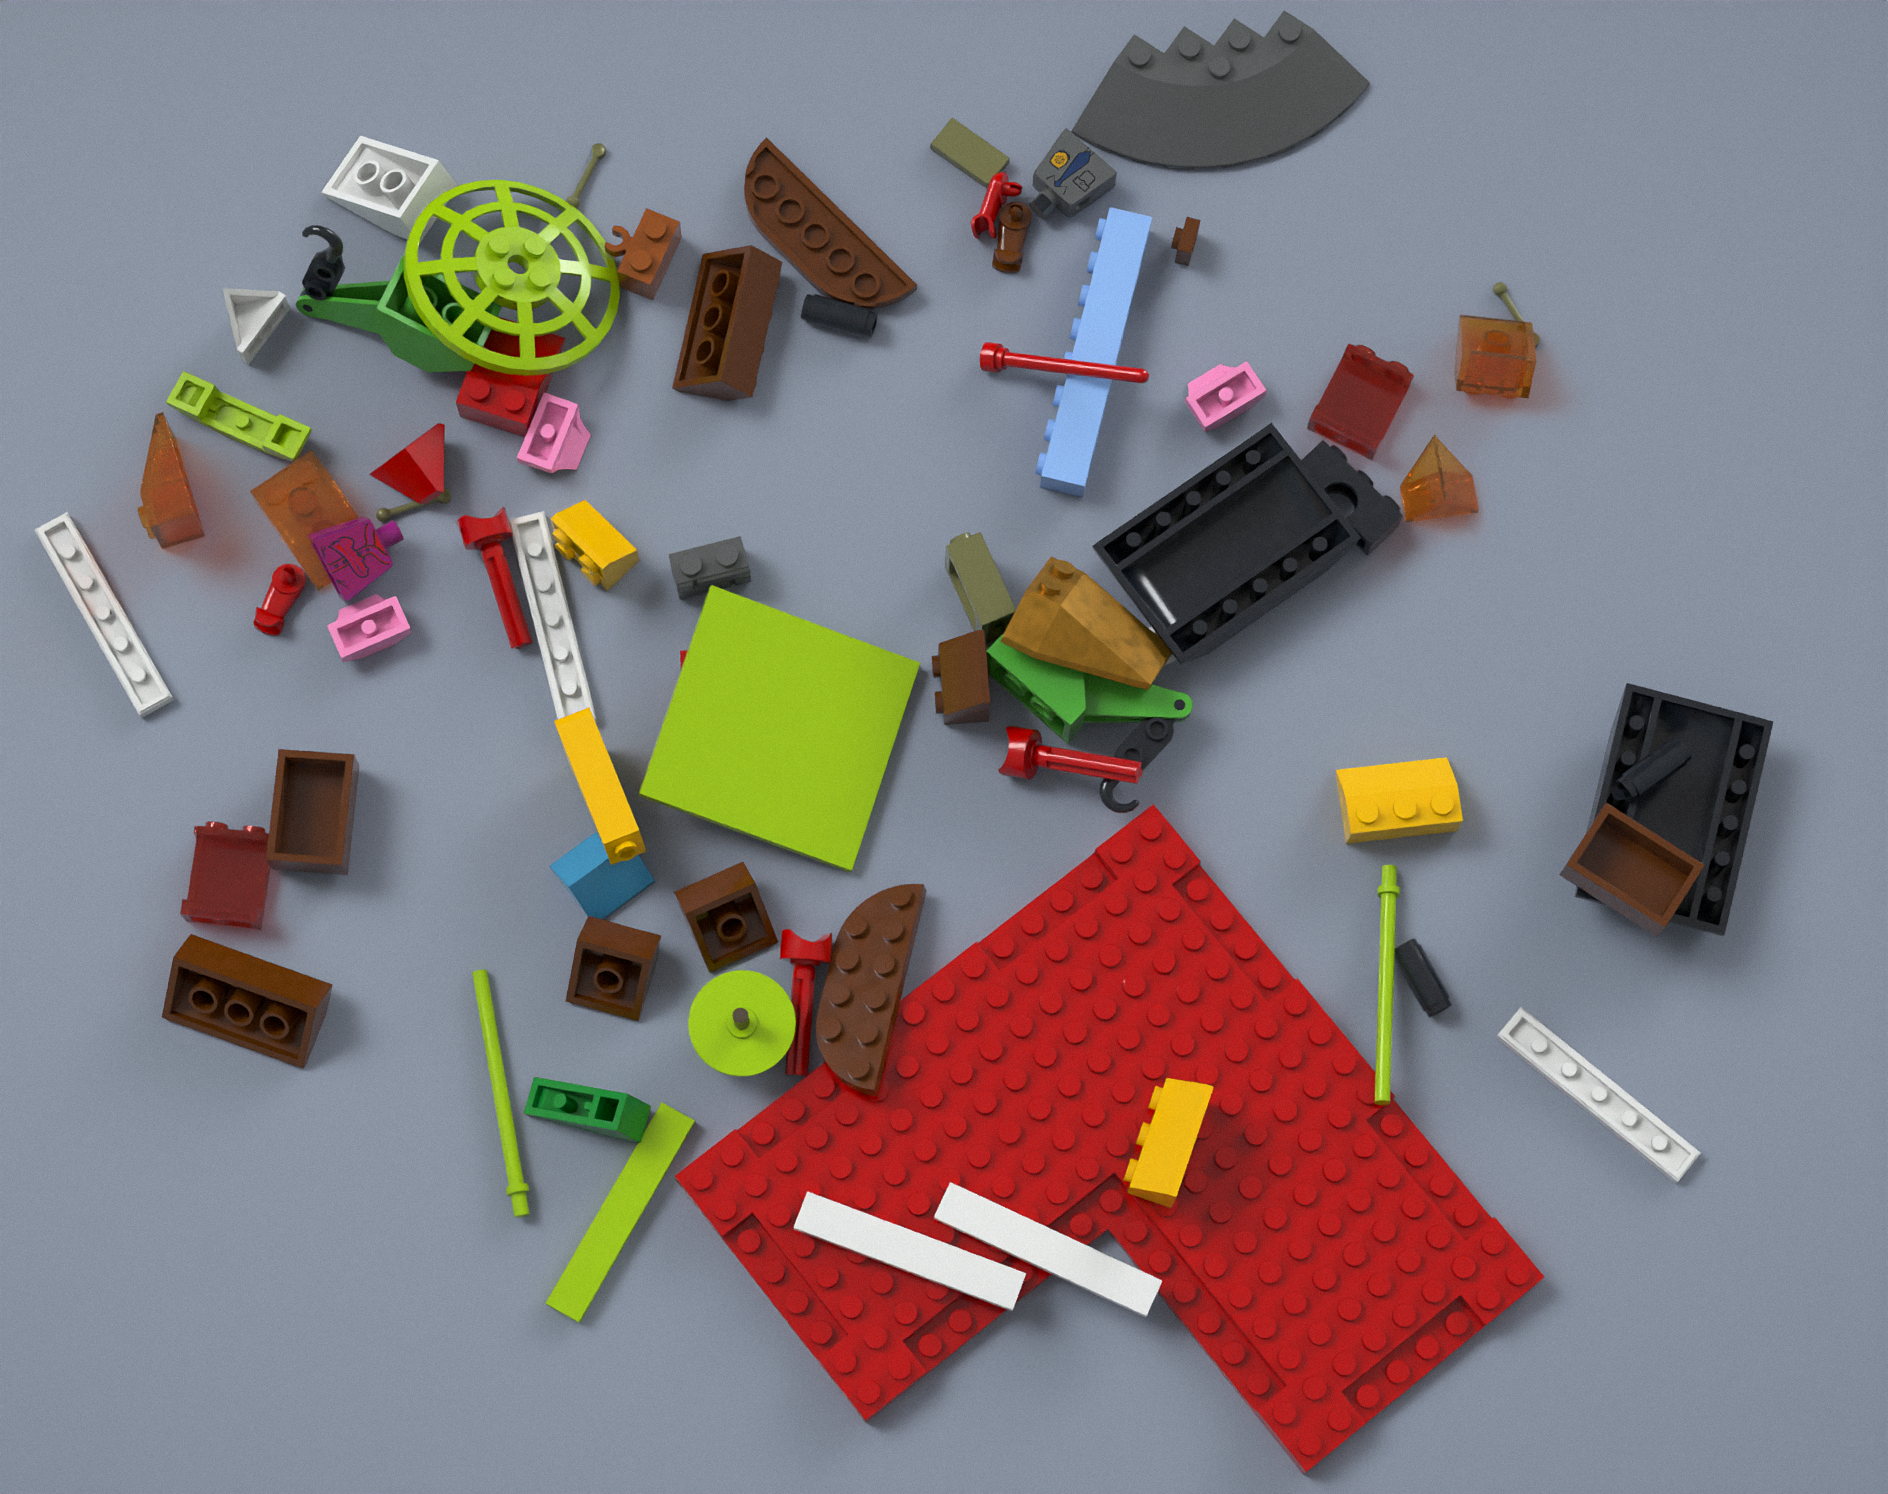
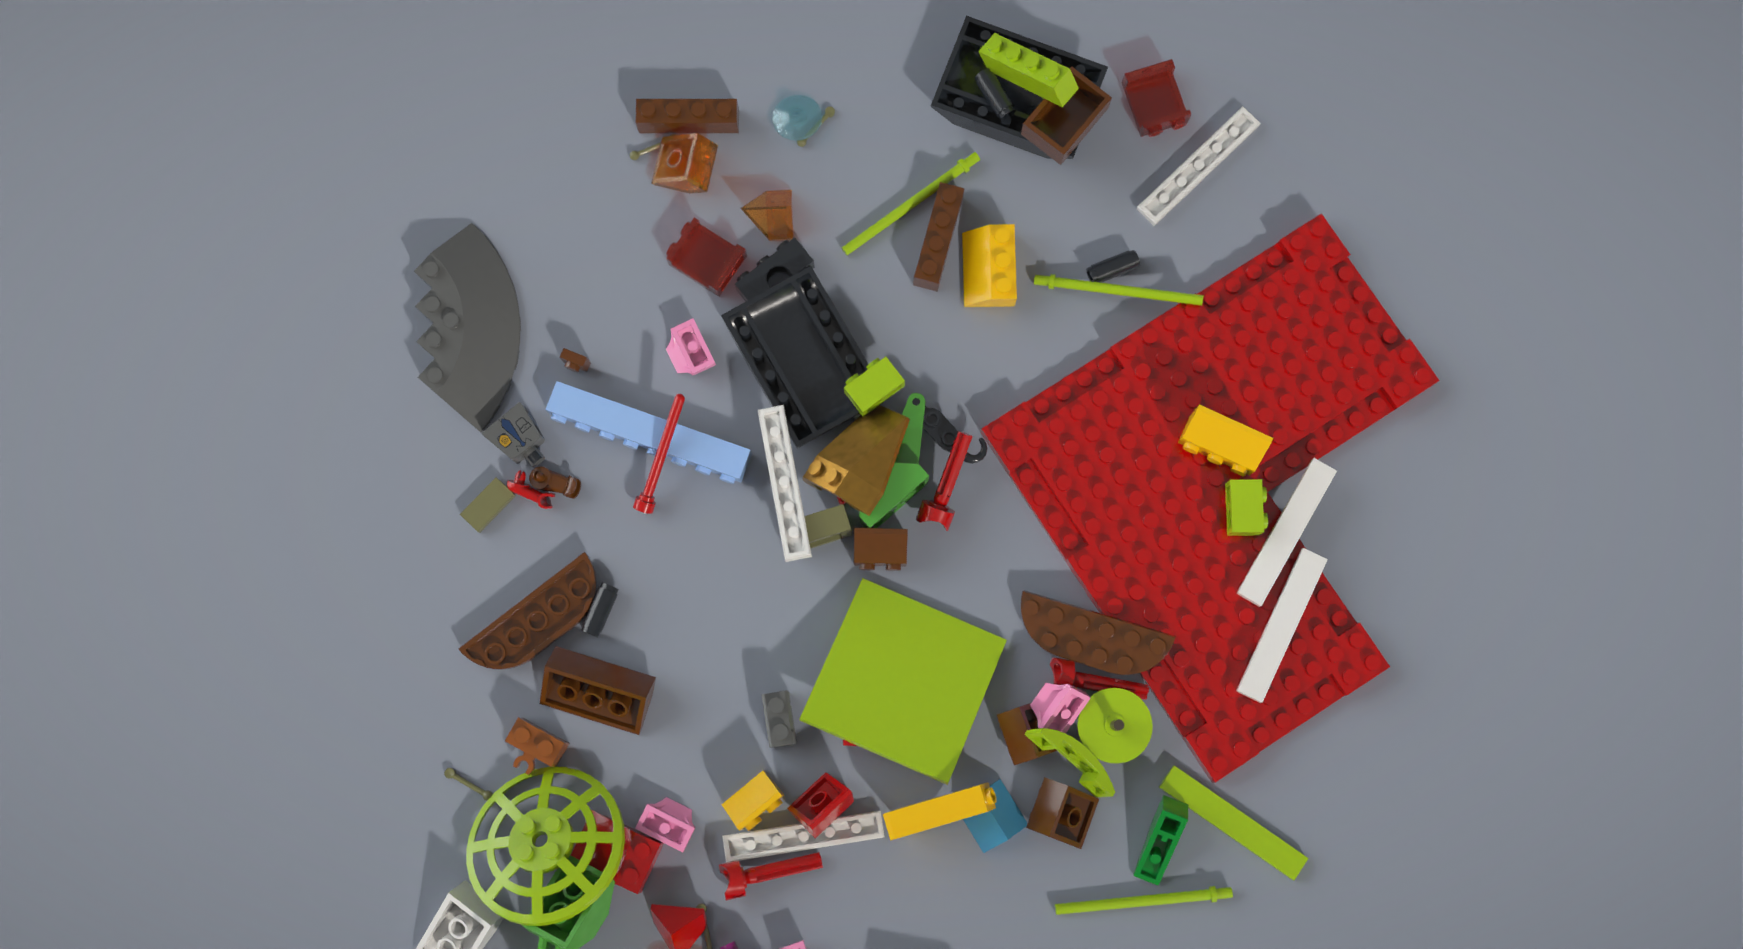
camera: 80 degrees left, 5 degrees up
(595, 636) = (821, 804): none -> red slope
(667, 1005) = (1094, 775): none -> lime slope
(758, 941) = (1058, 706): none -> bright pink slope
(1037, 528) = (784, 483): none -> white tile
(1076, 1183) = (1245, 507): none -> lime brick
(1191, 637) = (873, 385): none -> lime brick
(1433, 720) = (938, 236): none -> reddish brown brick
(1547, 748) = (961, 167): none -> lime bar
(1566, 352) = (687, 115): none -> reddish brown brick
(1582, 518) = (797, 126): none -> clear light blue dish
(1604, 552) = (829, 112): none -> olive hinge
(1689, 803) = (1029, 69): none -> lime brick
(1692, 1021) = (1155, 99): none -> clear red panel

